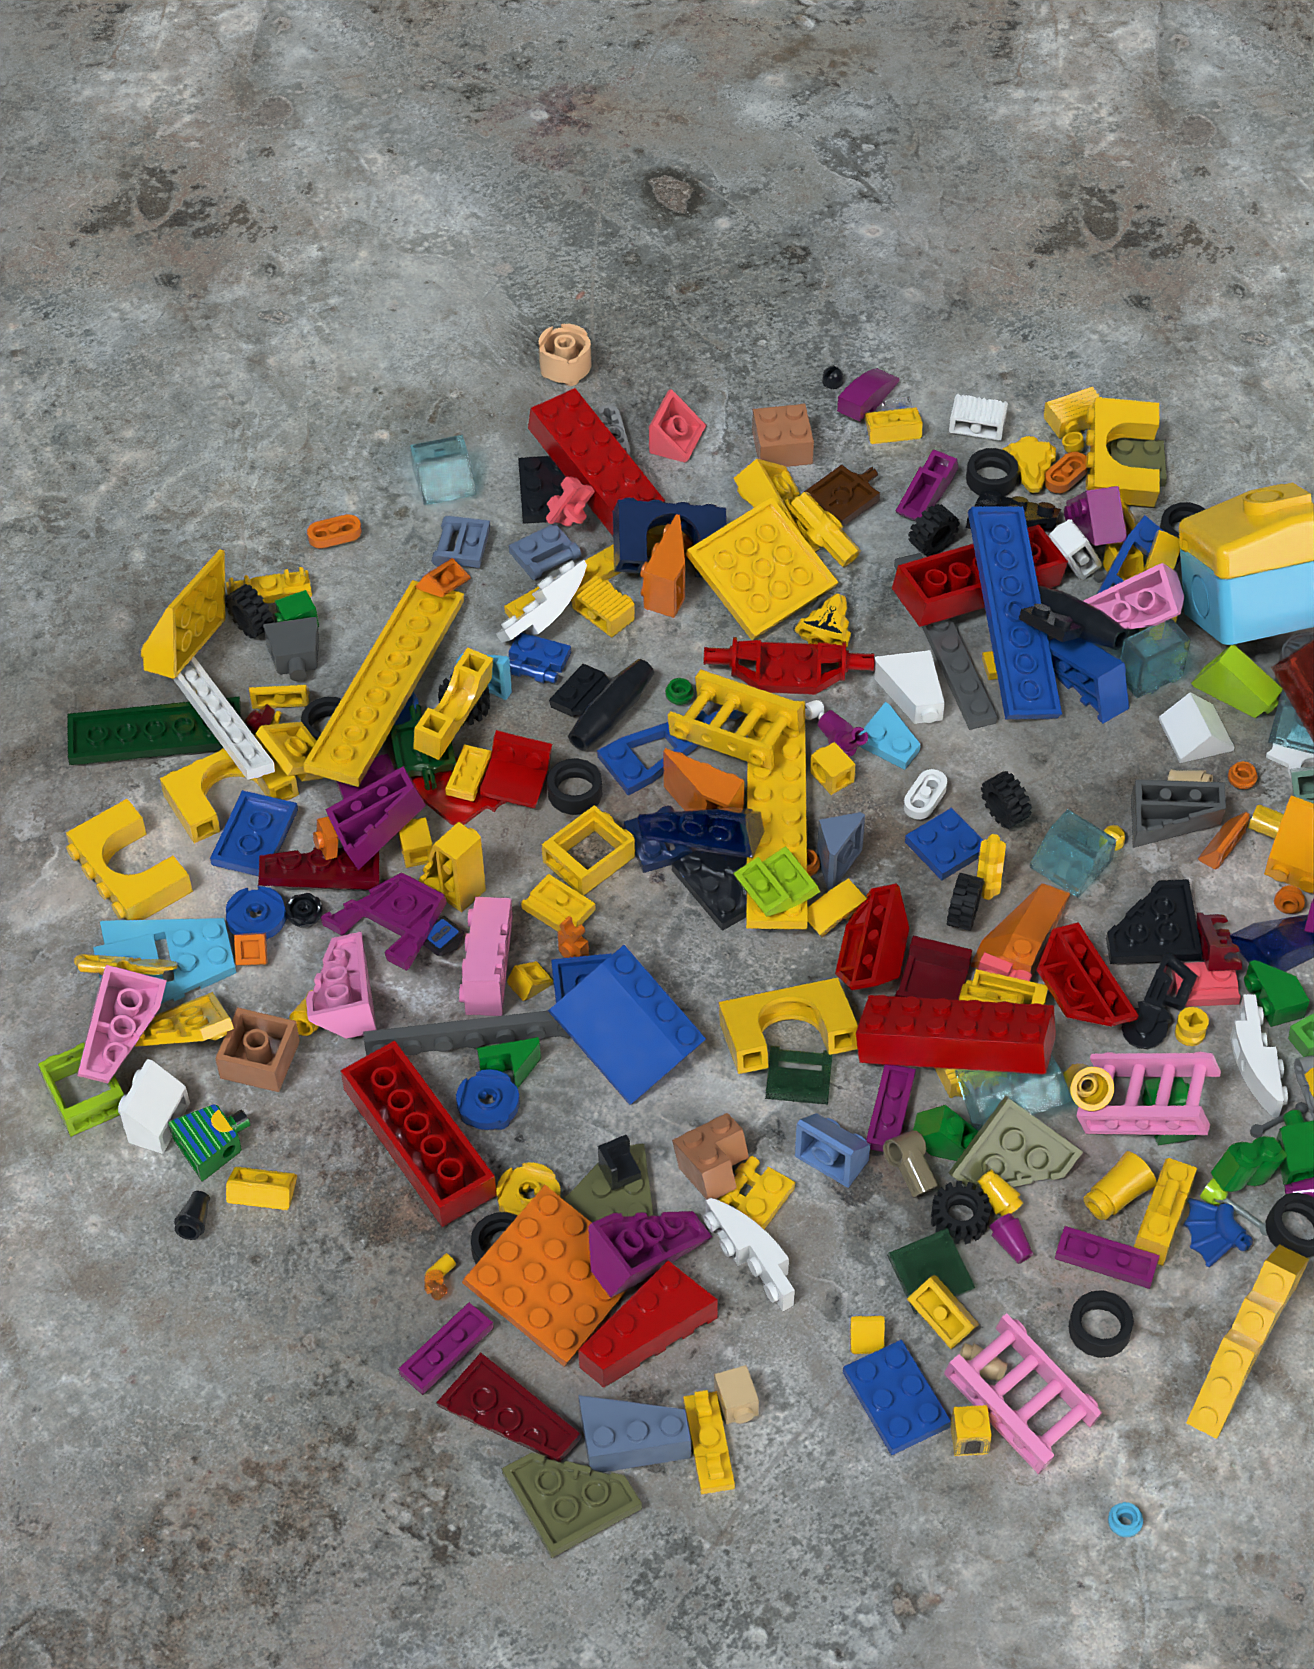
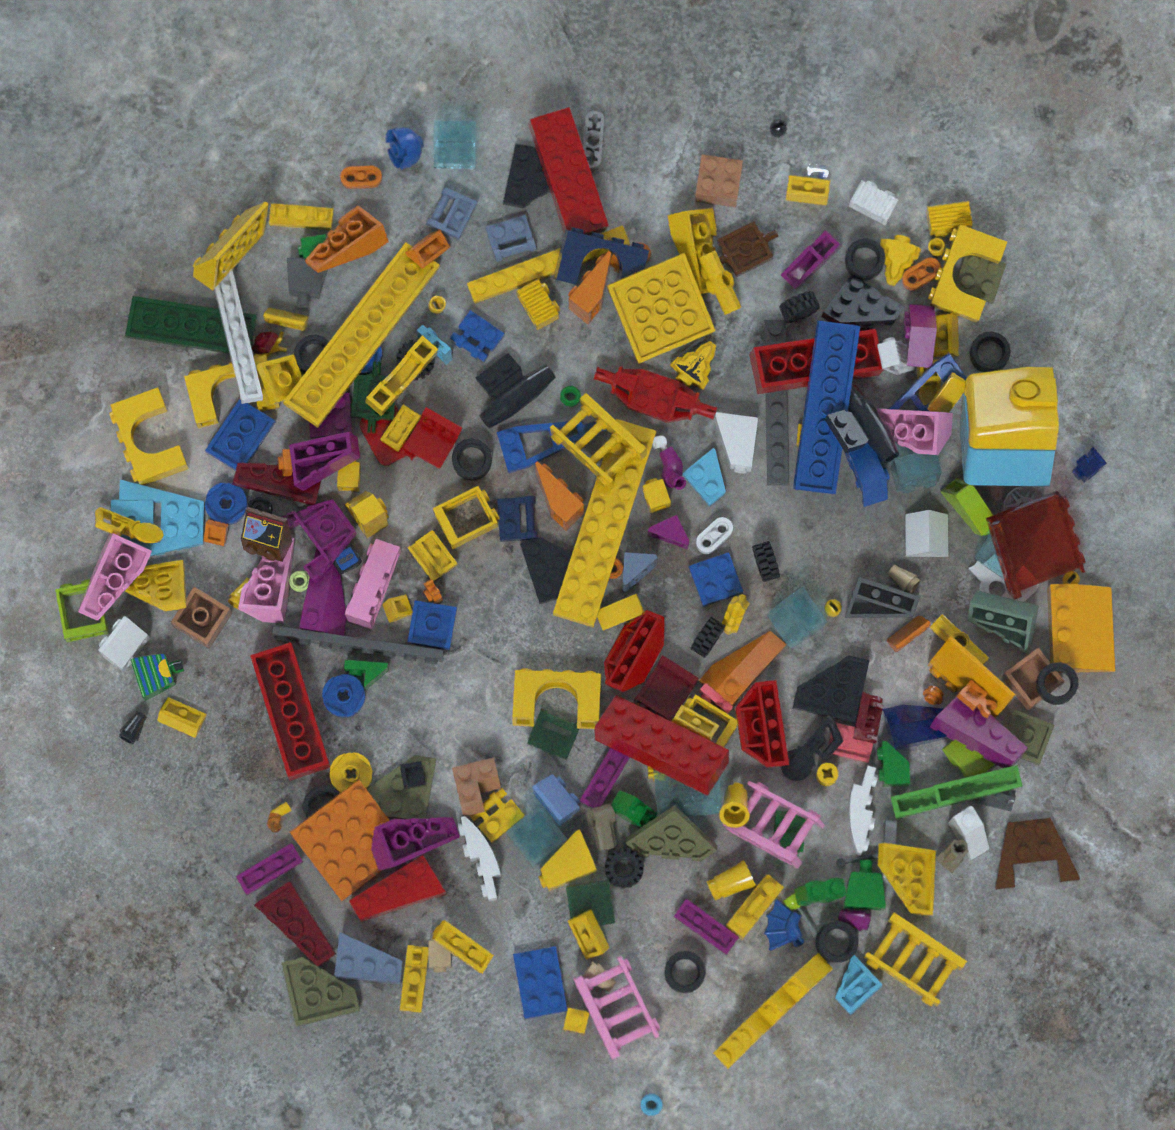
camera: 15 degrees right, 25 degrees up
(248, 610) = (280, 241): black tyre -> none
(322, 924) = (265, 535): none -> slope
(342, 585) = (352, 239): none -> orange wedge
(379, 486) = (405, 147): none -> blue cylinder
(383, 972) = (293, 581): none -> yellowish green plate
(426, 992) = (324, 604): none -> magenta wedge
(473, 636) = (440, 303): none -> yellow hinge
(550, 601) = (503, 291): white slope -> none
(565, 354) = (578, 41): light nougat brick -> none
(570, 505) = (537, 206): coral hips -> none
(627, 1024) = (447, 672): blue slope -> none
(674, 429) = (641, 151): coral slope -> none
(714, 829) = (555, 534): clear blue wedge -> none
(767, 1365) = (462, 946): none -> yellow plate
(777, 882) = (581, 591): lime slope -> none
(823, 1200) = (536, 837): none -> clear light blue brick
(866, 393) = (798, 153): magenta slope -> none
(866, 1334) = (534, 937): yellow slope -> none
(870, 800) = (670, 532): none -> magenta slope
(880, 1226) = (567, 864): none -> yellow slope
(1001, 1195) = (653, 864): yellow cone -> none
(1011, 1237) = (650, 895): magenta cone -> none
(1242, 775) = (943, 576): orange plate -> none

